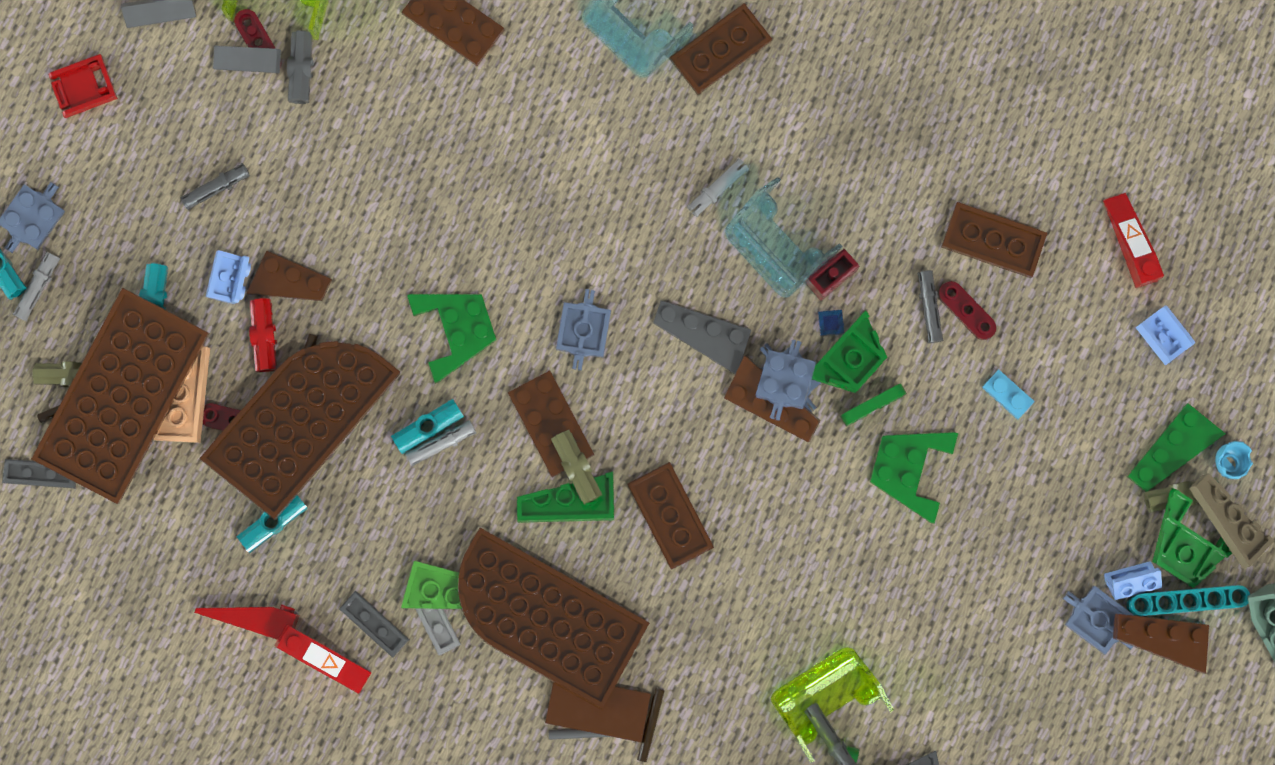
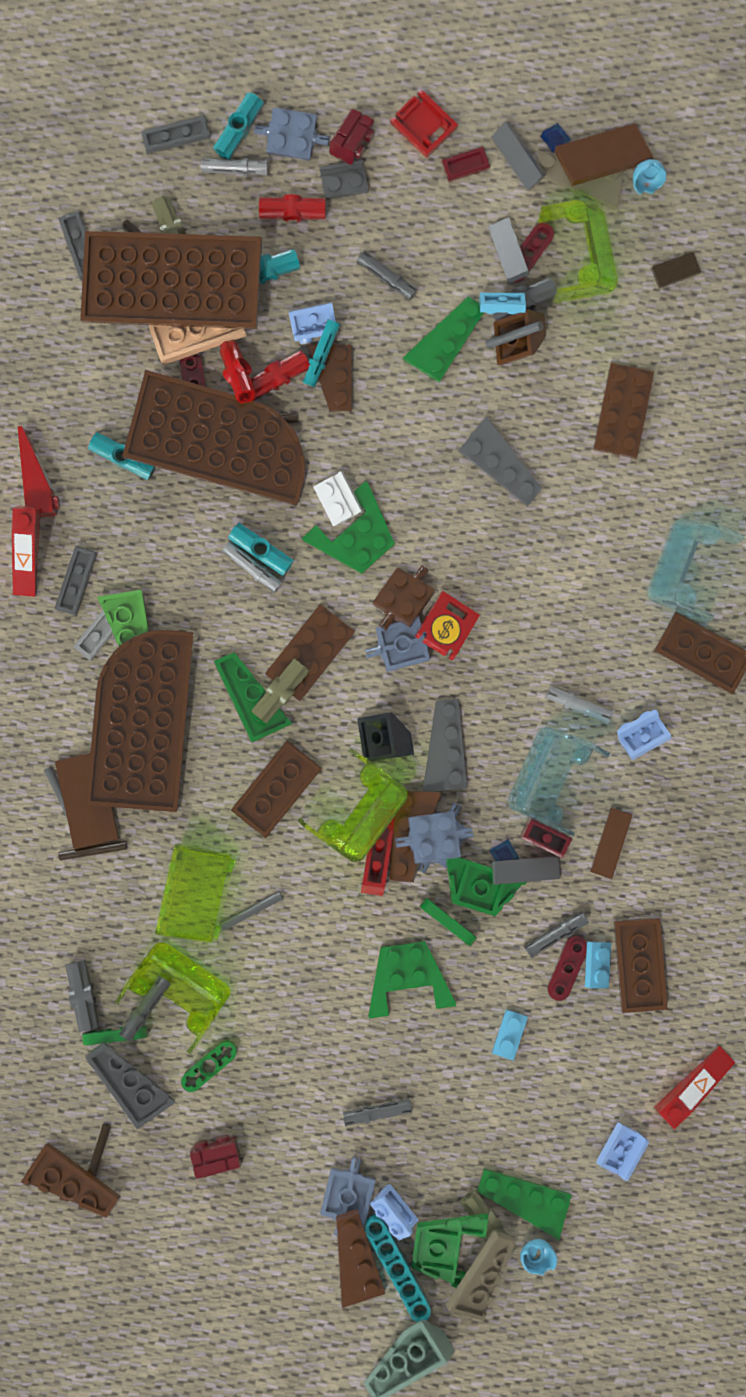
camera: 60 degrees right, 5 degrees up
(63, 160) = (351, 137): none -> dark red brick
(100, 186) = (343, 180): none -> dark grey plate
(105, 248) = (292, 208): none -> red piece
(142, 63) = (465, 164): none -> dark red tile
(242, 371) = (237, 371): none -> red piece
(262, 281) = (321, 353): none -> teal pin
(296, 86) = (502, 302): none -> medium azure plate
(307, 162) = (442, 345): none -> green wing
(332, 89) = (515, 334): none -> dark grey bar
(335, 87) = (523, 346): none -> reddish brown slope
(412, 329) = (338, 498): none -> white plate
(445, 160) = (496, 458): none -> dark grey wing
(538, 308) = (403, 597): none -> reddish brown plate
(586, 281) = (445, 628): none -> red container
(666, 387) = (384, 737): none -> black slope
(736, 432) = (368, 818): none -> clear neon green windscreen
(738, 639) = (193, 893): none -> clear neon green windscreen
(773, 140) = (643, 734): none -> light blue bracket
(774, 440) = (377, 863): none -> red slope
(779, 593) = (250, 911): none -> dark grey bar
(855, 308) = (525, 870): none -> dark grey tile
(865, 216) = (611, 843): none -> reddish brown tile
(925, 717) = (192, 1072): none -> green beam
(976, 280) = (597, 964): none -> medium azure plate
(1006, 733) = (215, 1156): none -> dark red brick
(1028, 560) = (377, 1112): none -> dark grey pin

